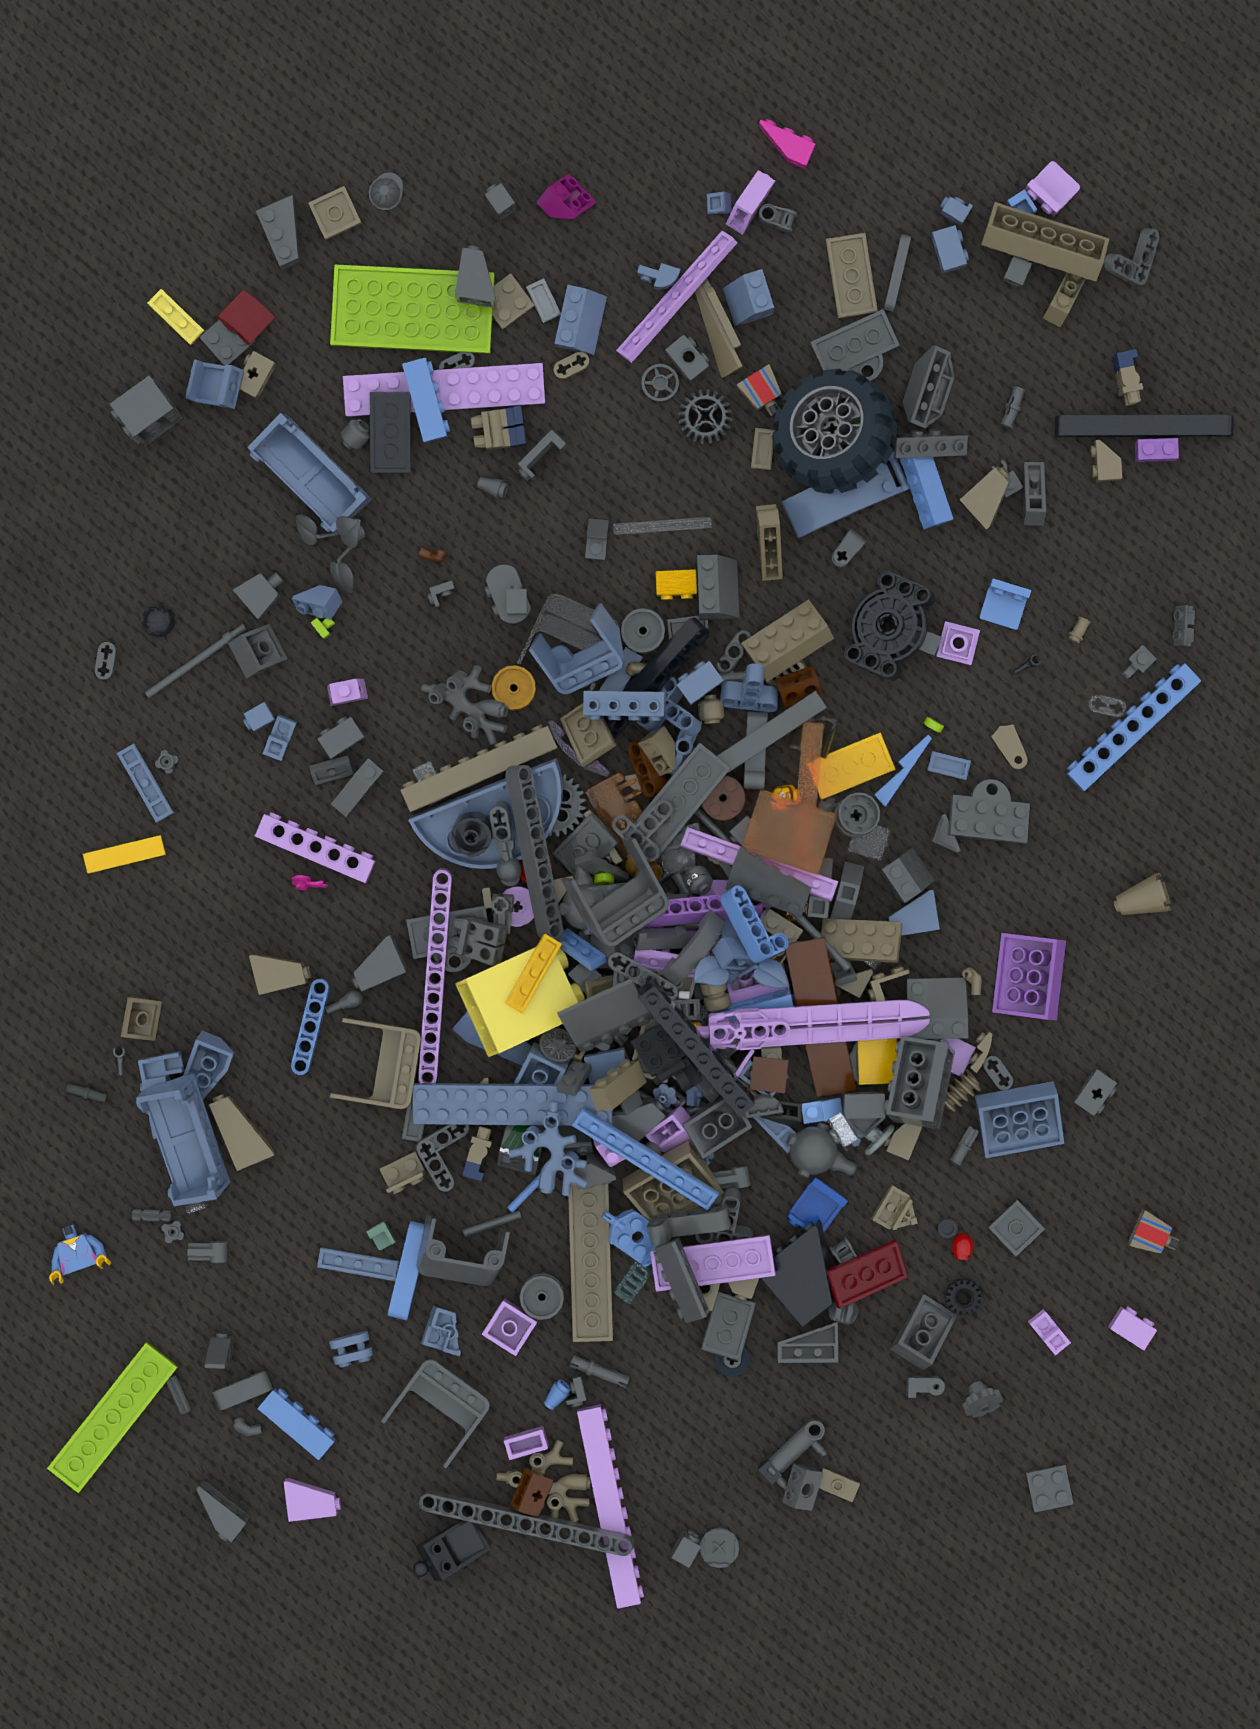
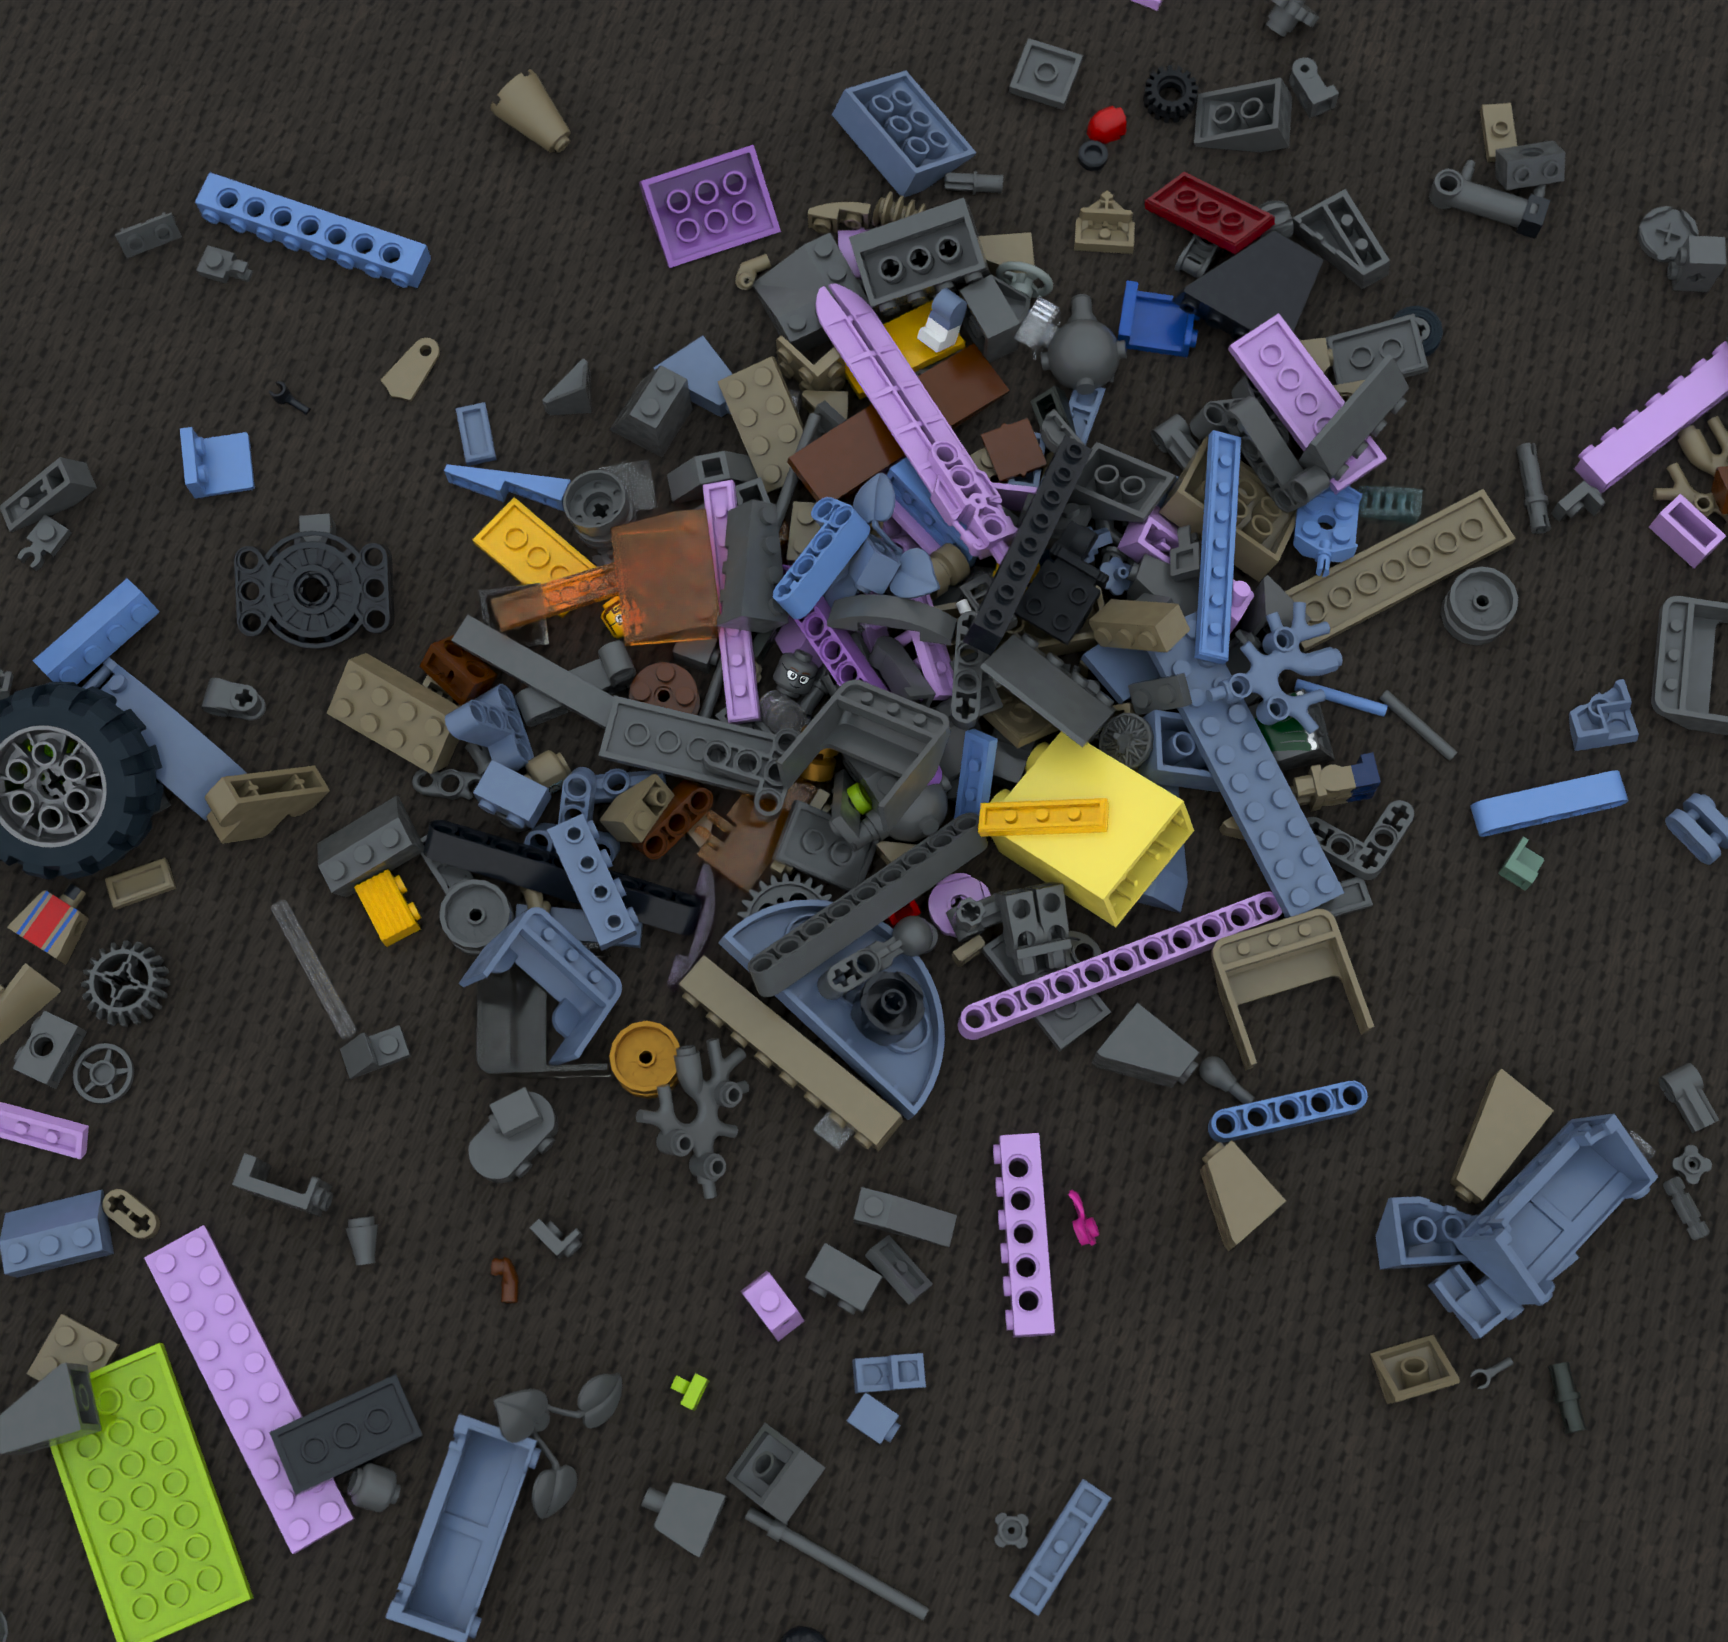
camera: 120 degrees left, 15 degrees down
(124, 854) = (1184, 1525): yellow tile -> none
(318, 601) = (655, 1415): sand blue slope -> none
(358, 1264) = (1580, 879): sand blue tile -> none
(403, 1171) = (1421, 874): dark tan bracket -> none
(425, 400) = (271, 1403): medium blue brick -> none
(433, 1264) = (1516, 764): dark grey windscreen -> none
(456, 358) = (192, 1392): dark grey beam -> none
(494, 433) = (270, 1284): dark tan hips -> none
(509, 1327) = (1546, 628): lavender brick -> none
(543, 300) = (49, 1303): flat silver tile -> none
(558, 1393) = (1594, 525): medium blue cone -> none
(587, 736) = (667, 917): dark tan tile -> none
(650, 1138) = (1187, 557): none -> dark grey plate
(821, 1110) = (1023, 374): light blue slope -> none
(872, 1074) = (943, 321): none -> leg
(930, 444) = (30, 649): dark grey bracket -> none
(933, 724) = (428, 475): lime tile -> none
(948, 651) = (288, 485): lavender piece -> none
(987, 496) = (73, 549): dark tan slope -> none
(989, 815) = (517, 348): dark grey plate -> none
(994, 1075) = (851, 182): dark grey beam -> none
(1079, 630) = (212, 356): dark tan pin -> none
(1095, 1081) = (819, 61): dark grey brick -> none
(1108, 701) = (306, 275): clear beam -> none

